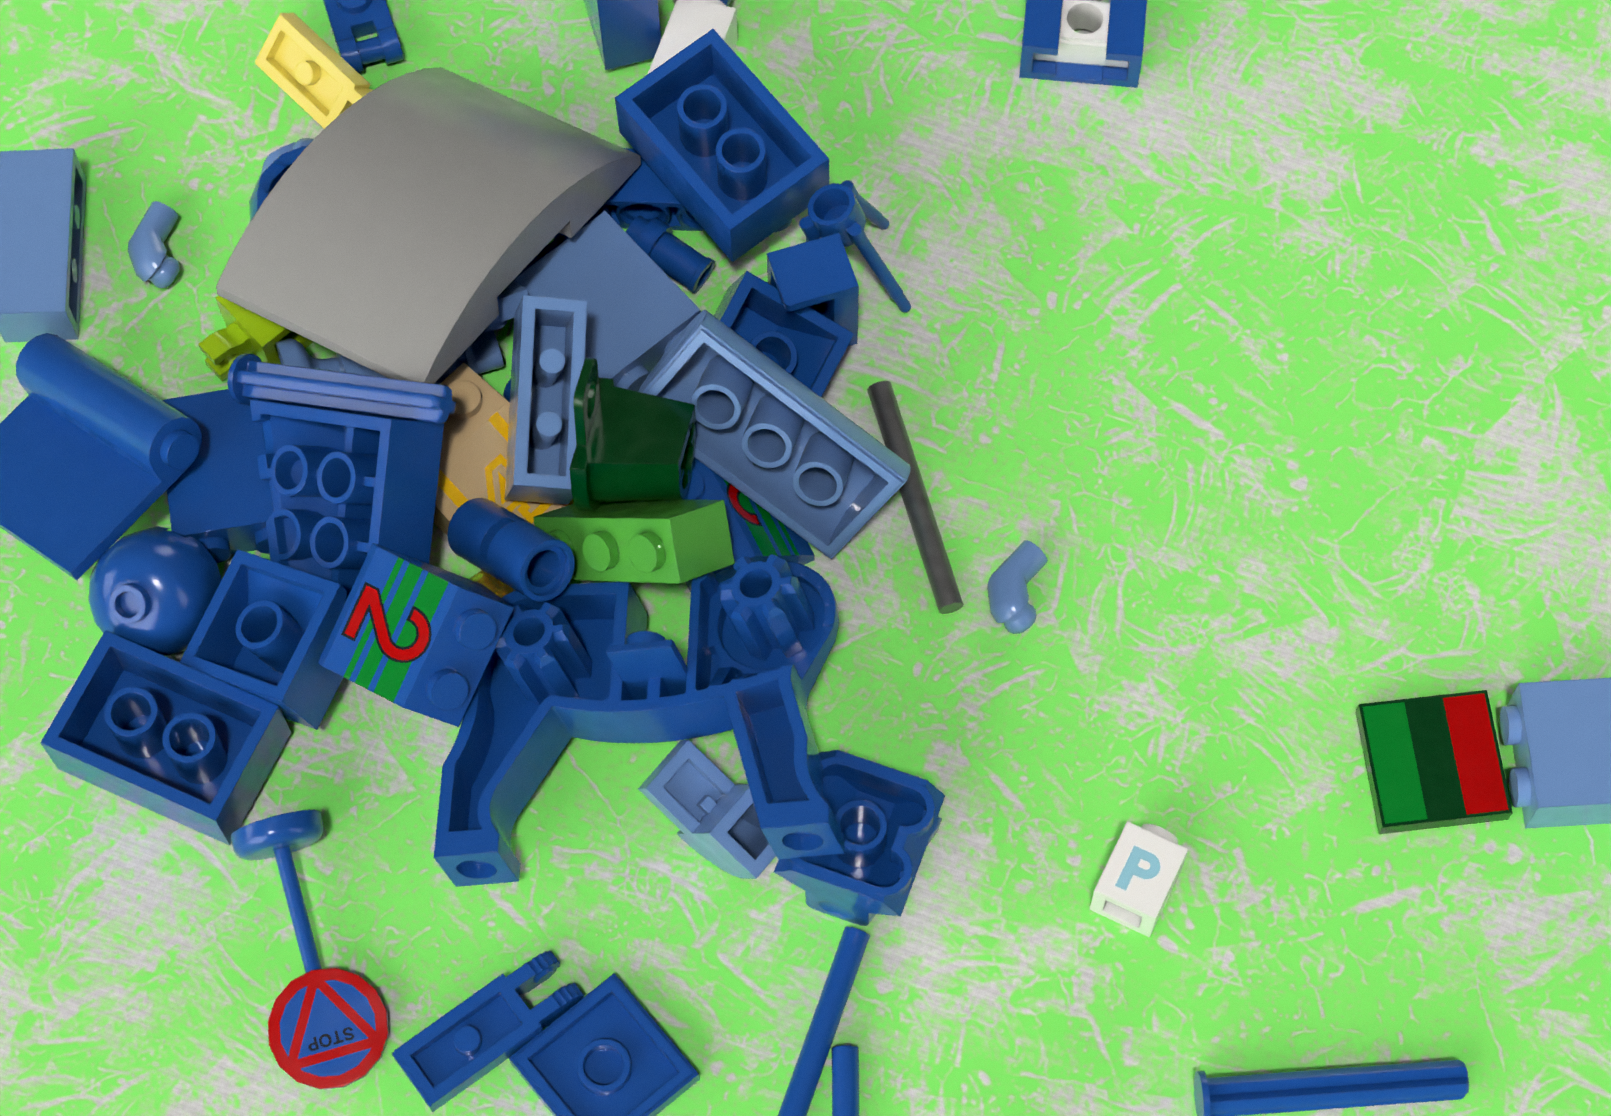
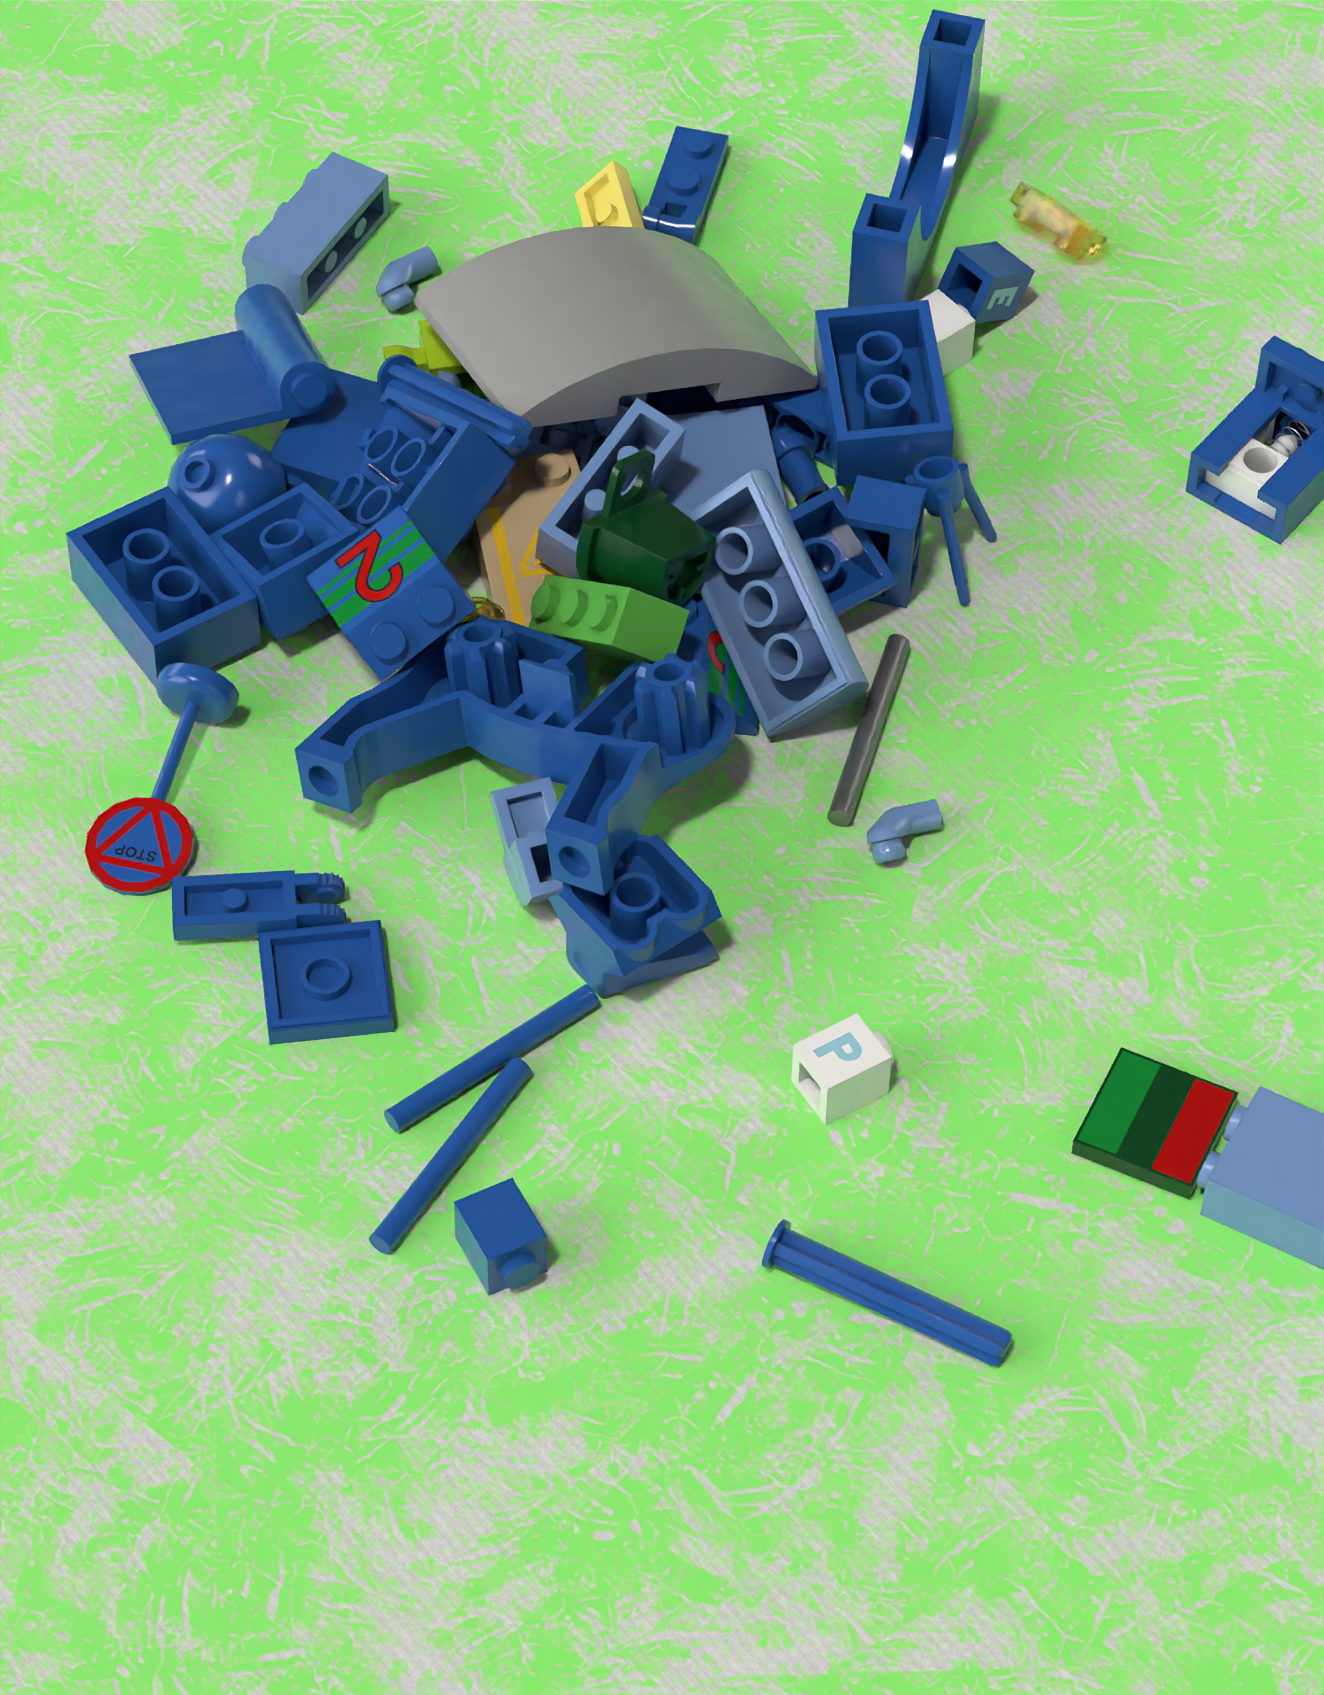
camera: 30 degrees right, 15 degrees down
(511, 549) = (509, 581): blue pin -> none

